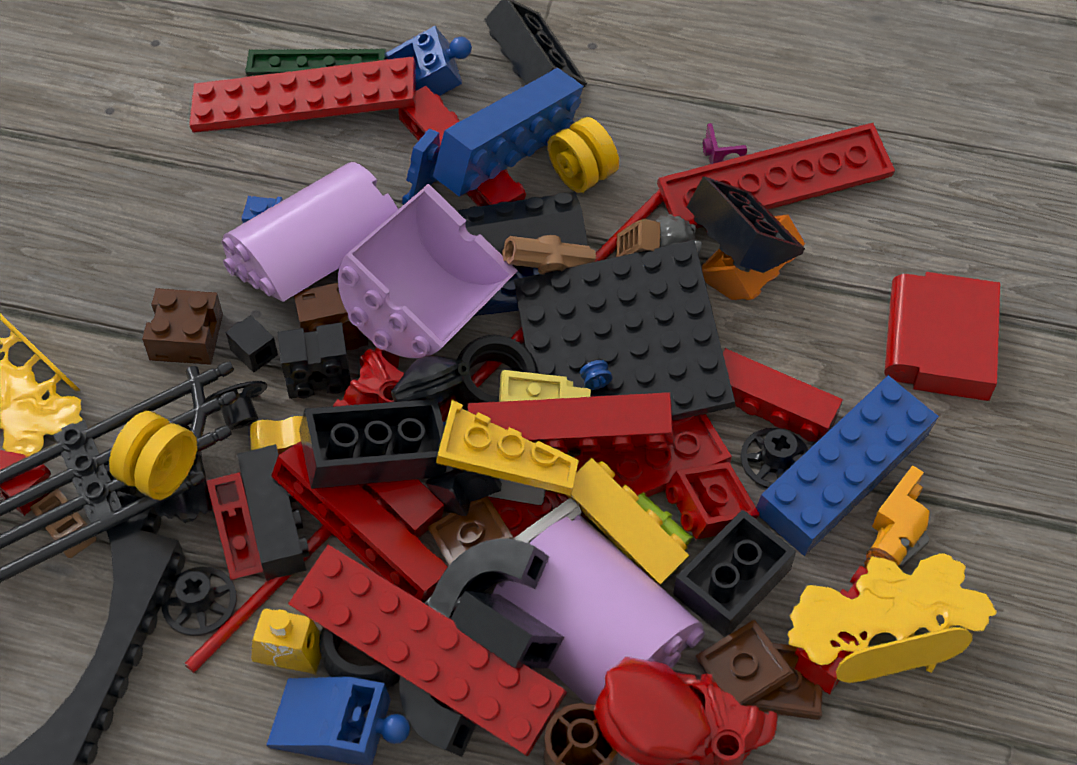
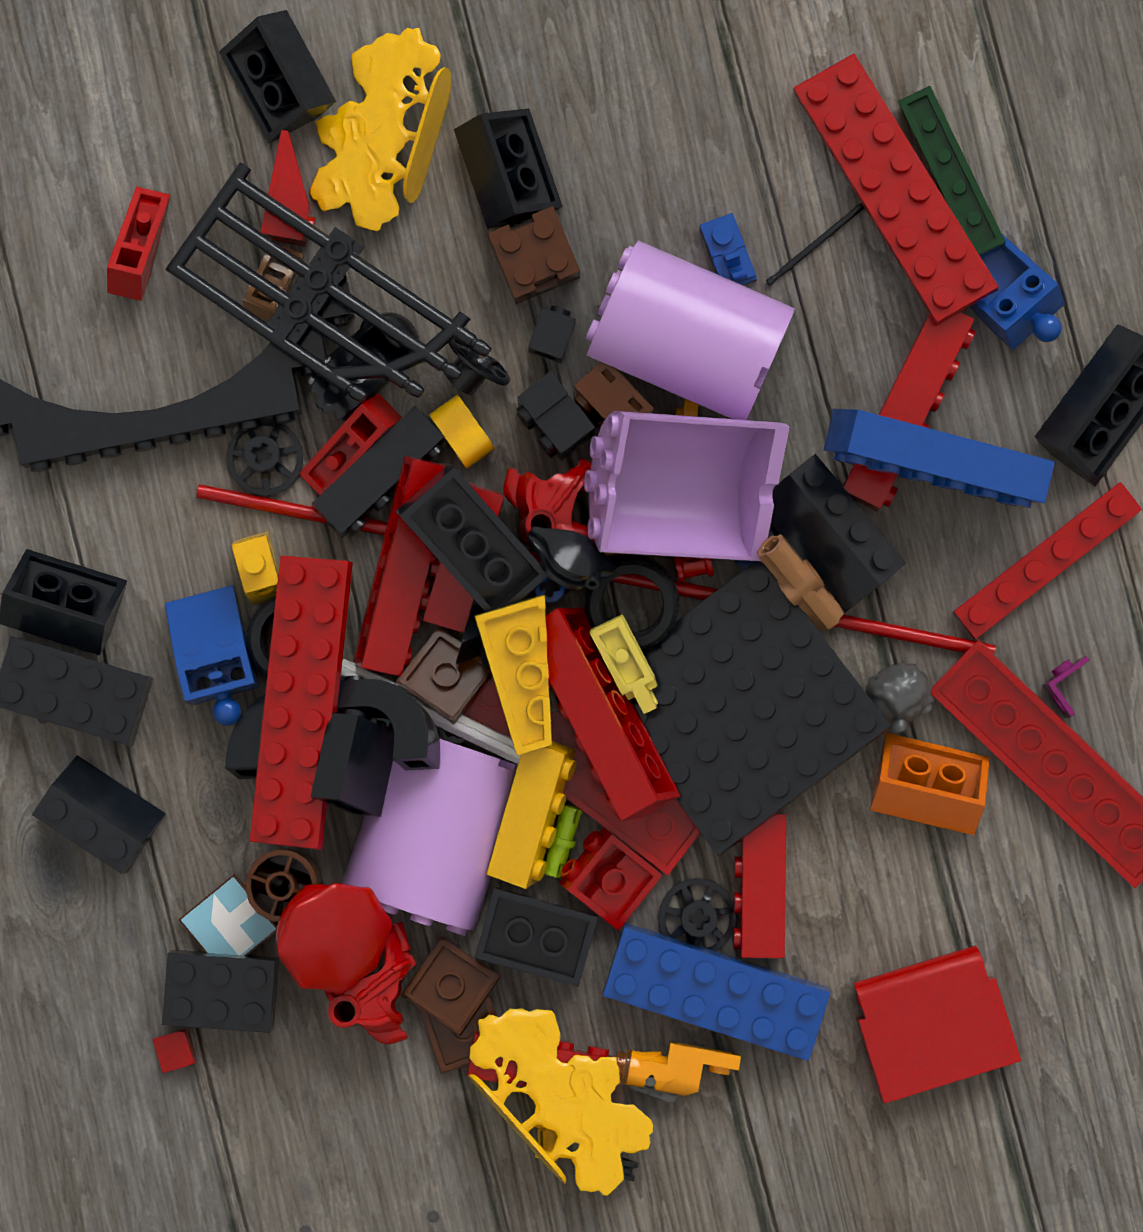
camera: 60 degrees right, 30 degrees up
(100, 317) = (507, 166): none -> black slope
(153, 455) = (340, 353): yellow wheel -> none
(305, 152) = (816, 243): none -> black piece
(423, 163) = (866, 382): blue wing -> none
(495, 326) = (692, 566): none -> red bush
(583, 154) = (960, 543): yellow wheel -> none
(596, 374) = (675, 705): blue bush -> none
(624, 130) = (1047, 560): none -> red plate
(639, 237) = (873, 662): medium nougat slope -> none
(742, 226) = (938, 768): black slope -> none

